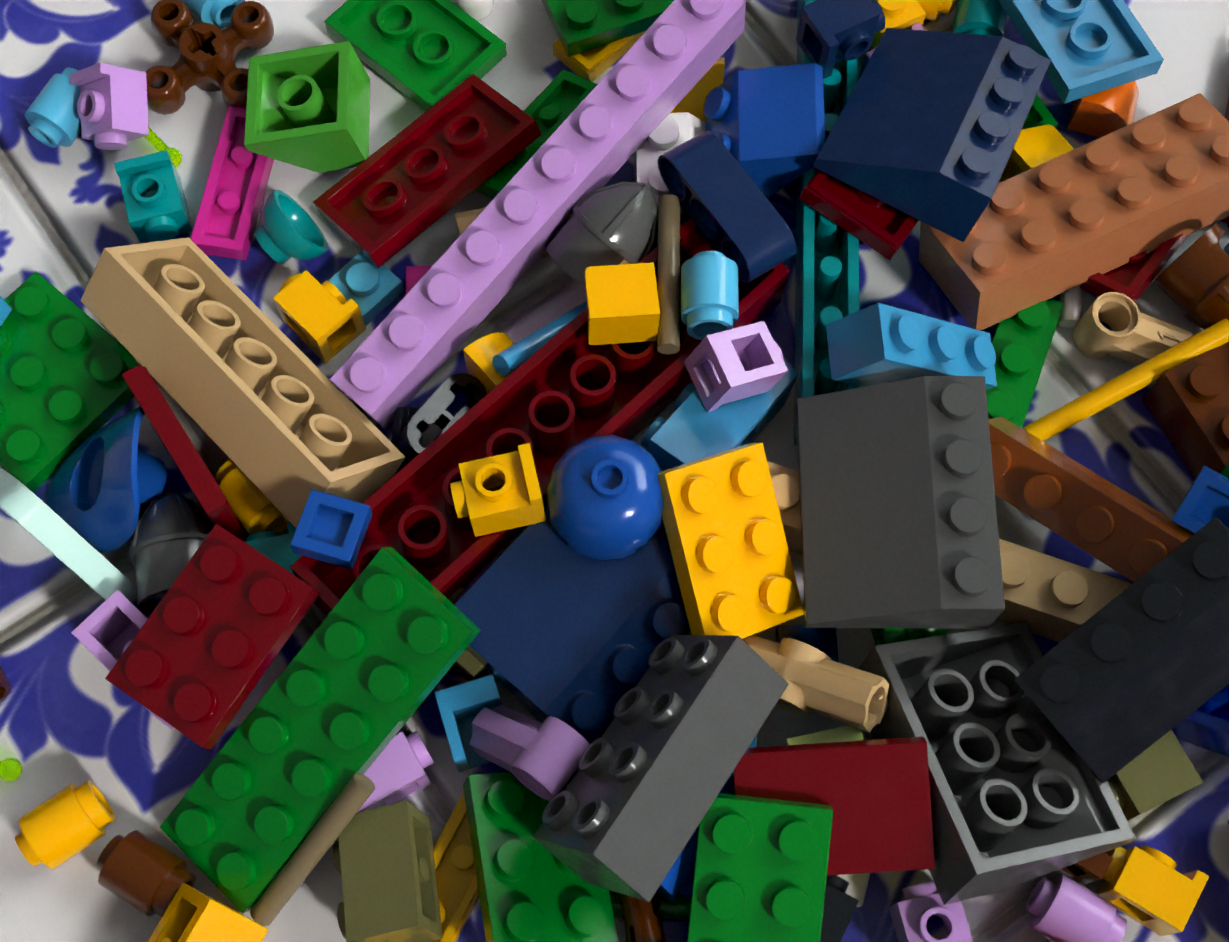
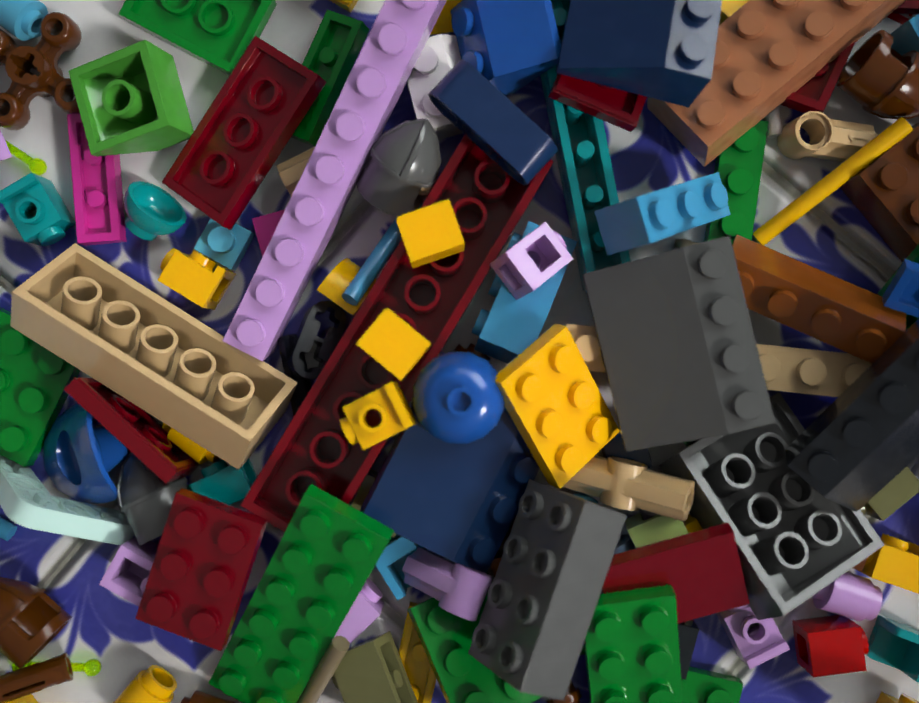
camera: 10 degrees left, 20 degrees up
(331, 529) = (262, 477): blue plate -> none
(543, 413) = (394, 344): none -> yellow panel
(668, 274) = (460, 191): dark tan bar -> none
(709, 294) = (497, 208): medium azure brick -> none

